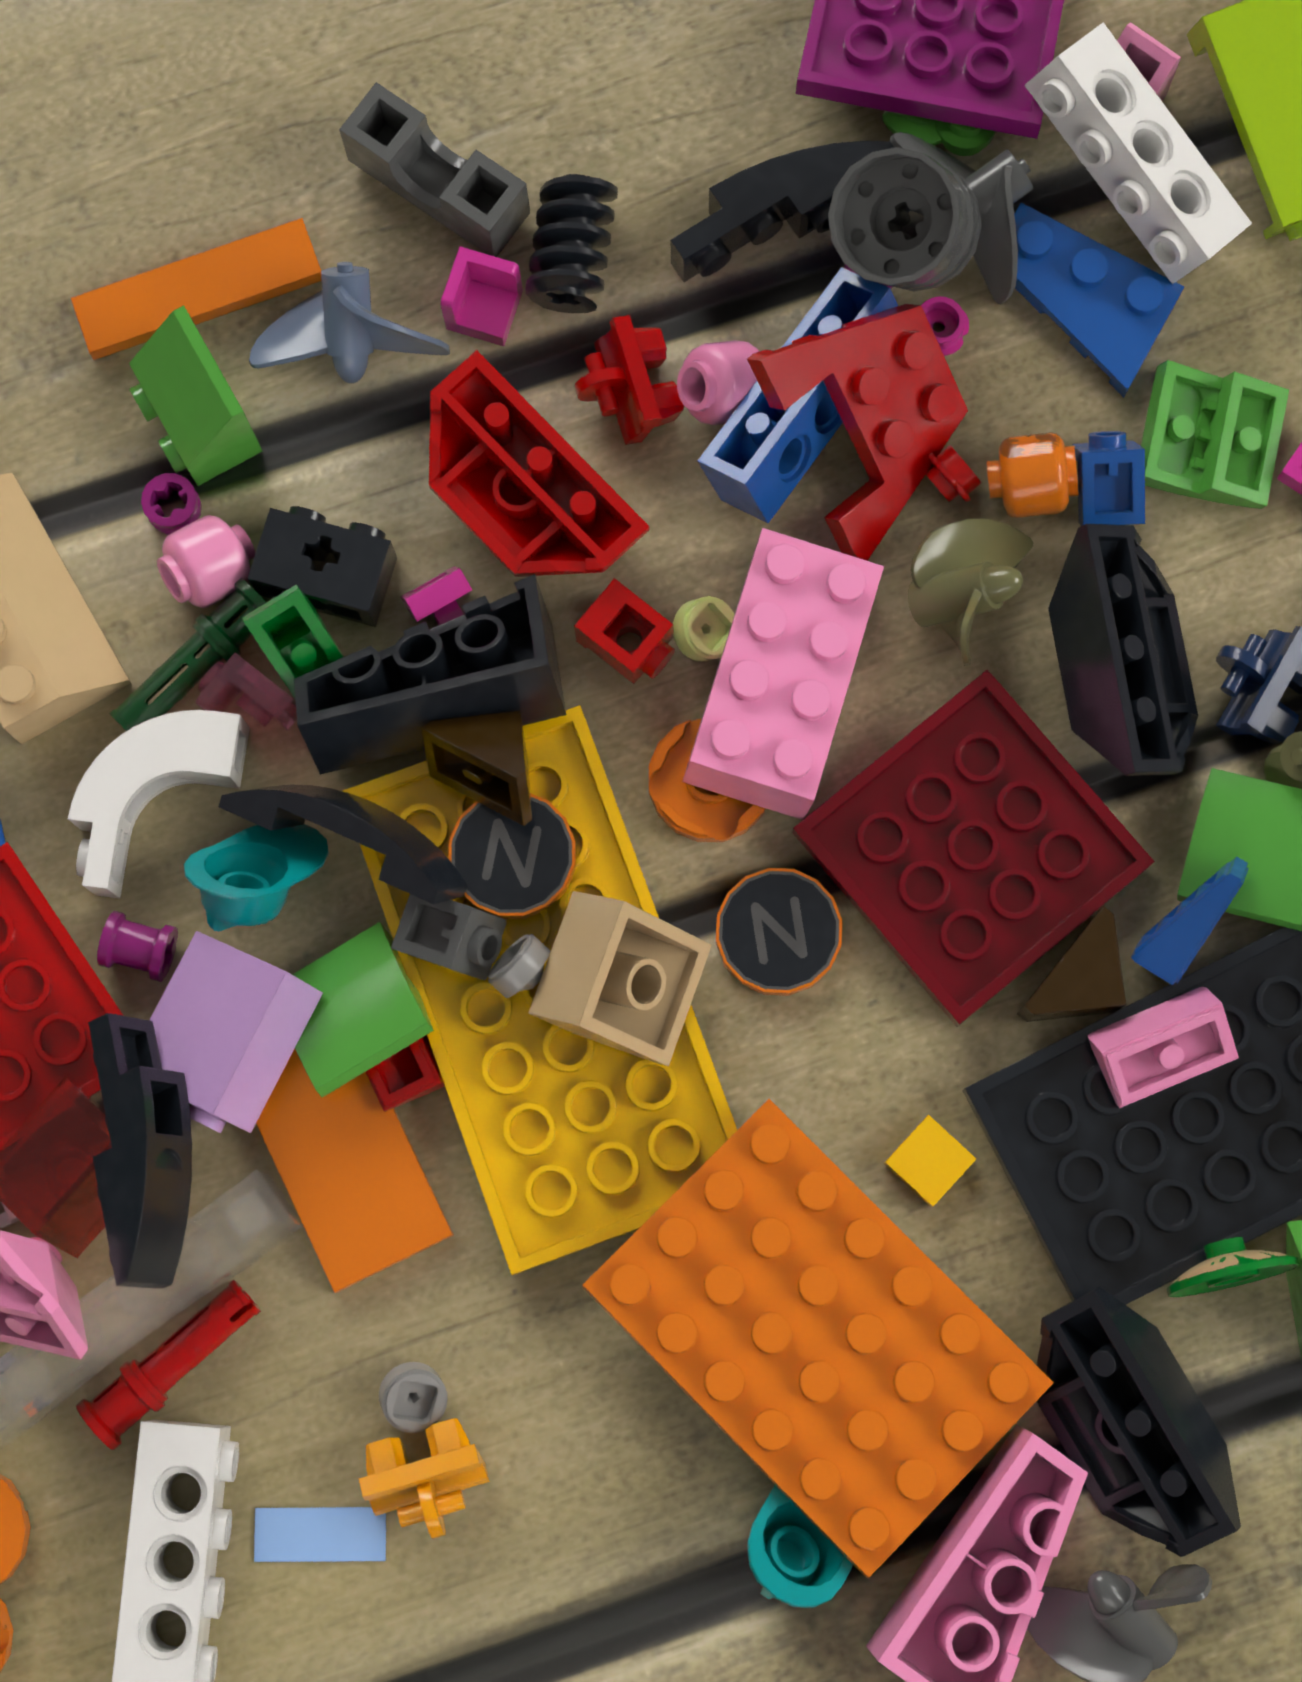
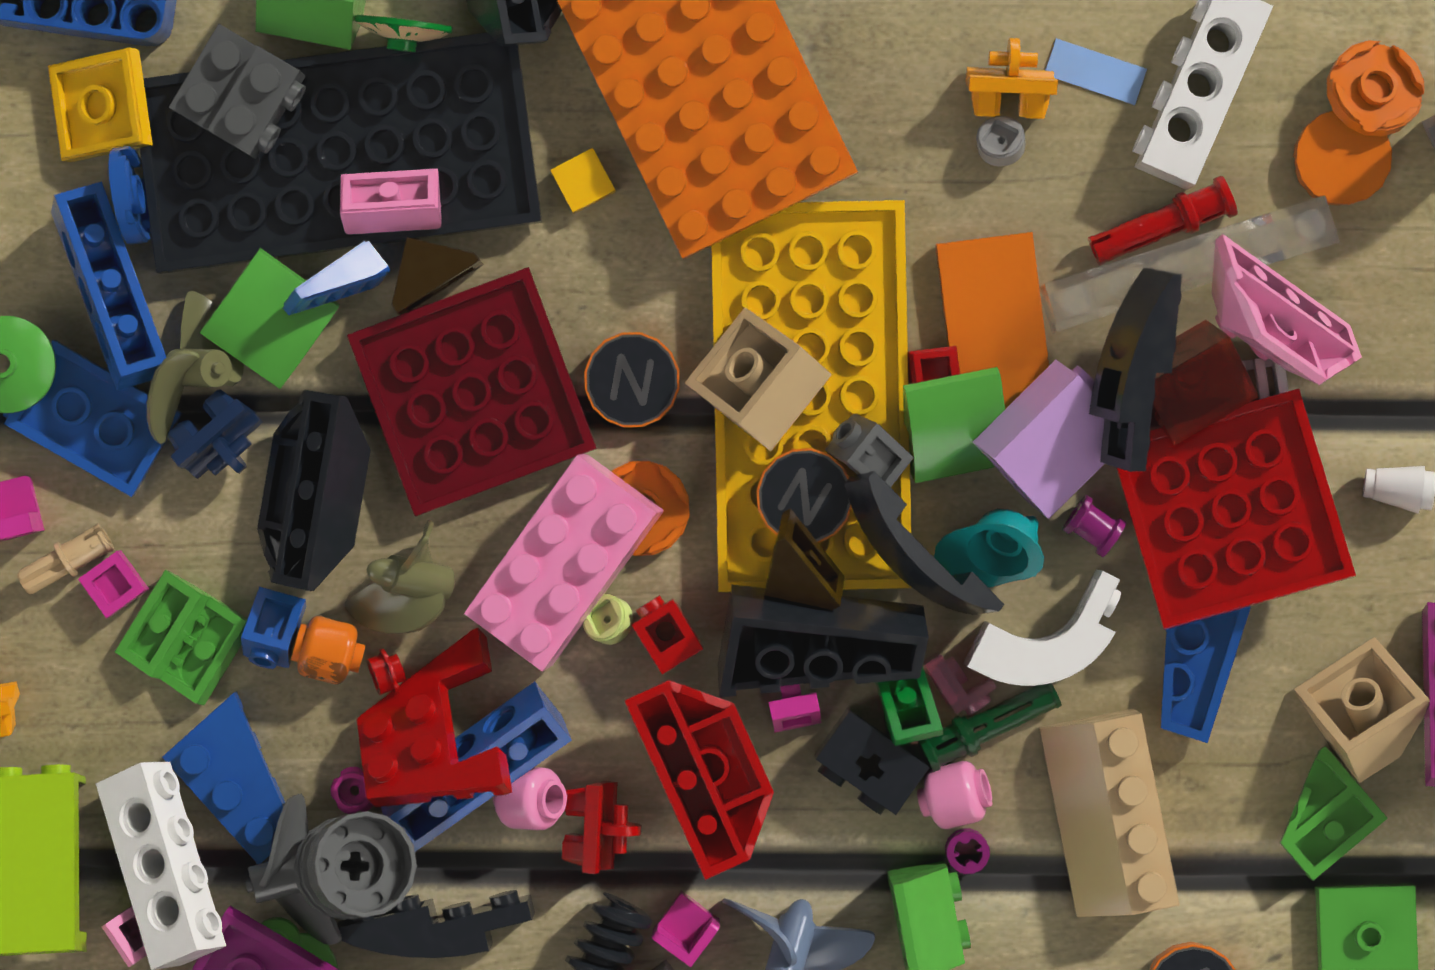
camera: 165 degrees left, 10 degrees up
(519, 966) = (826, 412): light grey tile -> none

